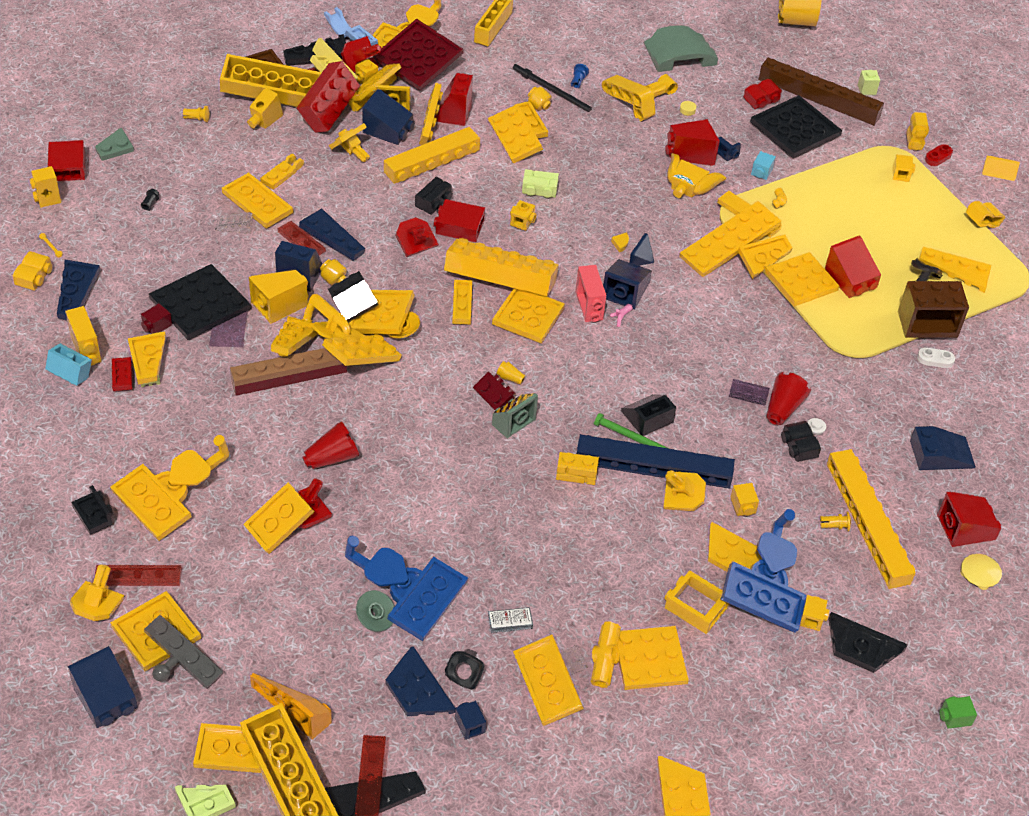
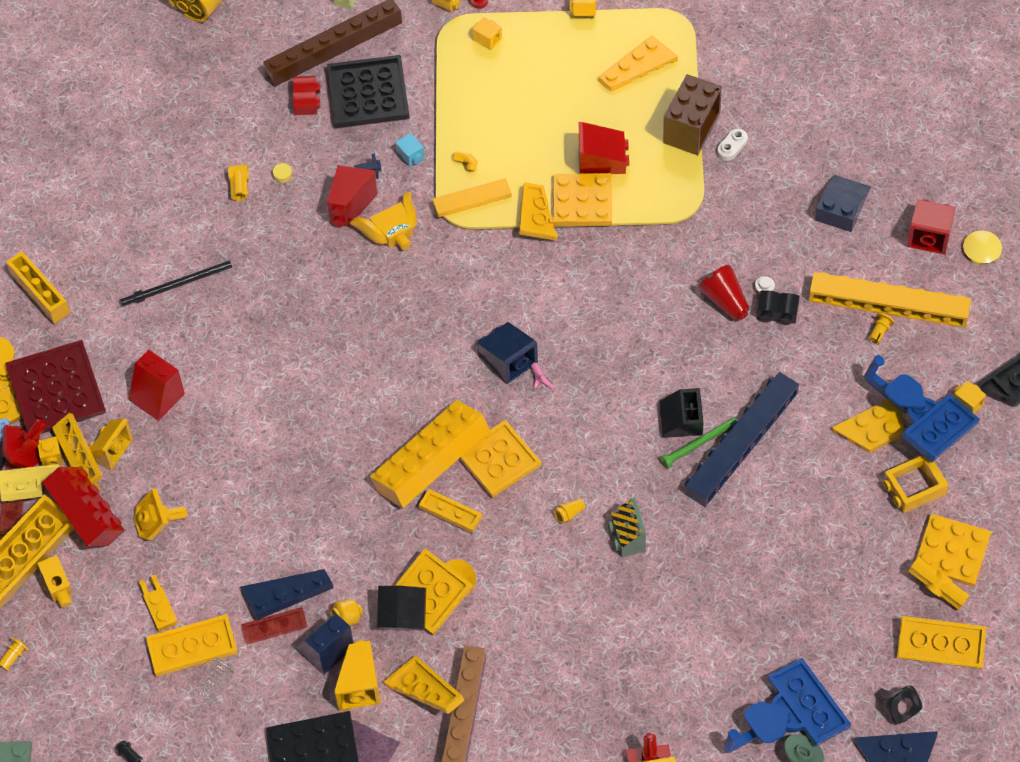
camera: 55 degrees left, 10 degrees up
(331, 448) = (590, 710): red cone -> none
(346, 343) = (475, 631): yellow plate -> none
(386, 118) = (143, 464): dark blue slope -> none
(415, 236) = (336, 513): red piece -> none
(431, 155) = (220, 445): yellow brick -> none
(432, 109) = (162, 421): yellow wing -> none
(433, 195) = (283, 470): black brick -> none
(459, 220) = (335, 462): red brick -> none
(470, 719) = (955, 723): dark blue brick -> none
(493, 391) = (587, 535): dark red bracket -> none
(510, 620) = (860, 644): tile -> none
(515, 133) = (232, 351): yellow plate -> none
(522, 215) = (362, 400): yellow brick -> none
(533, 119) = (218, 326): yellow plate -> none
(539, 98) = (191, 303): yellow head -> none
(540, 183) = (322, 363): yellowish green brick -> none
(577, 468) = (719, 507): yellow brick -> none
(580, 73) = (173, 246): blue pin -> none
(590, 293) = (511, 390): coral window -> none
(620, 241) = (442, 329): yellow tile -> none
(633, 93) = (238, 213): yellow beam -> none
(642, 252) = (470, 317): slope -> none
(677, 44) = (186, 133): sand green slope -> none
(684, 491) = (789, 432): yellow piece -> none
(725, 240) = (498, 232): yellow plate -> none
(744, 499) = (825, 387): yellow brick -> none
(749, 392) = (697, 318): clear purple plate -> none
(927, 270) = (636, 89): black piece -> none

